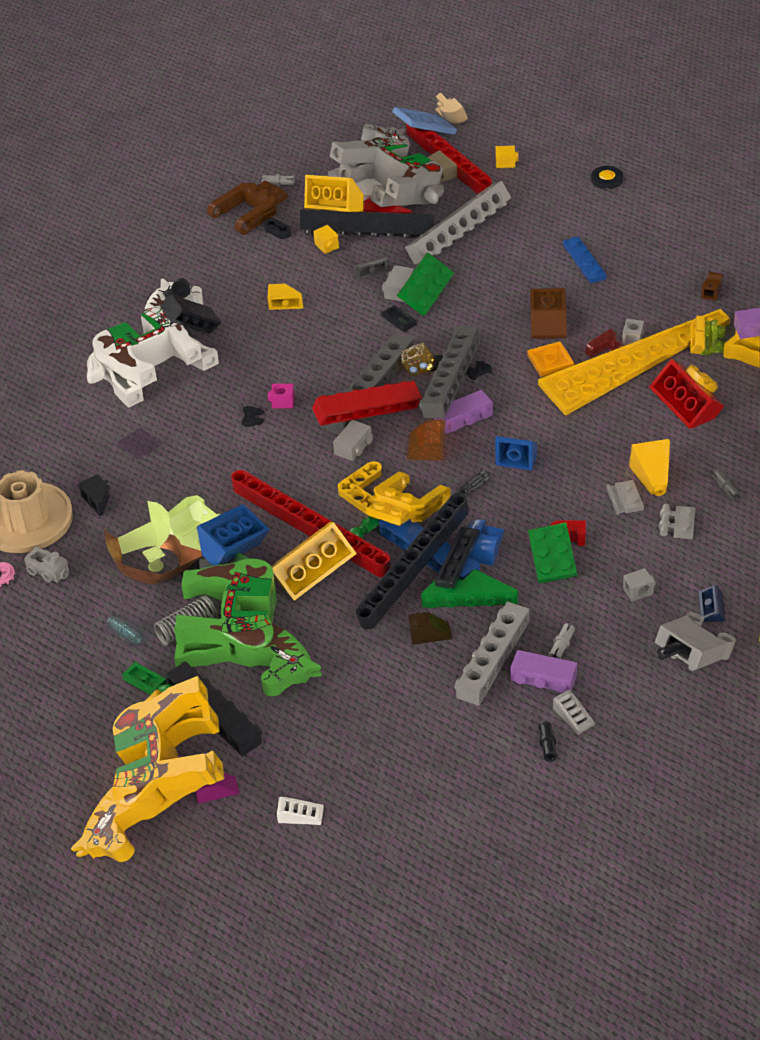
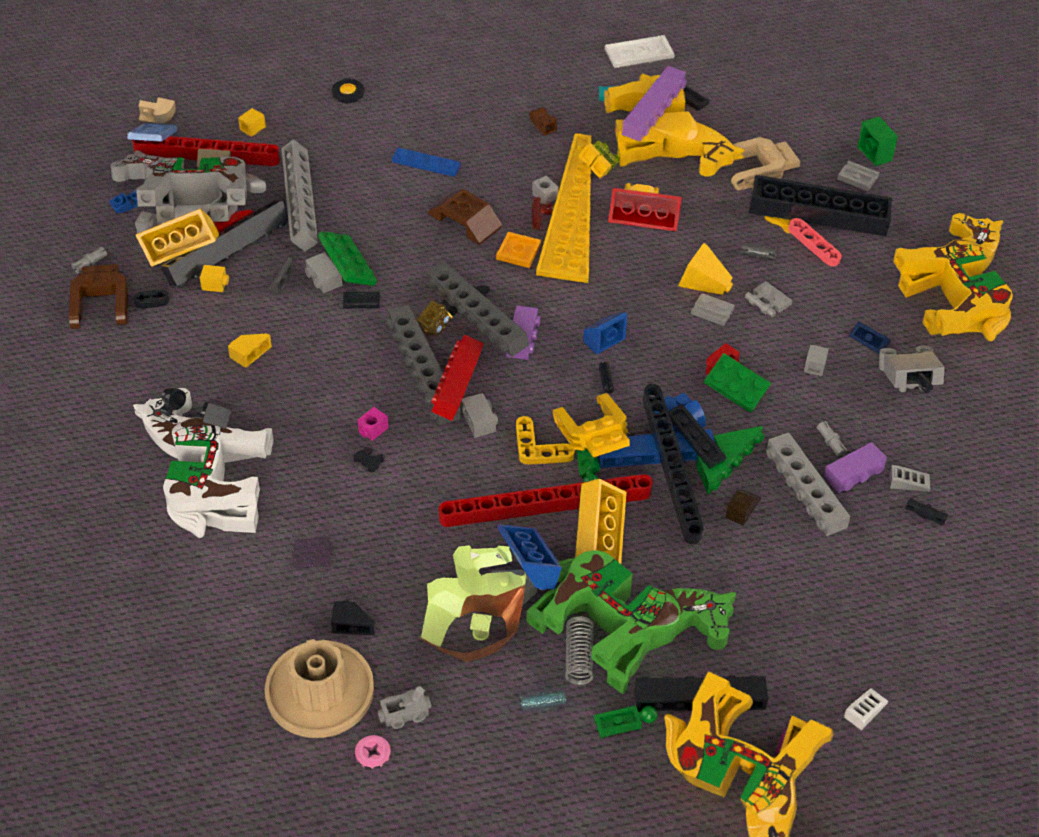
camera: 55 degrees left, 5 degrees up
(427, 441) = (532, 373): clear orange slope -> none

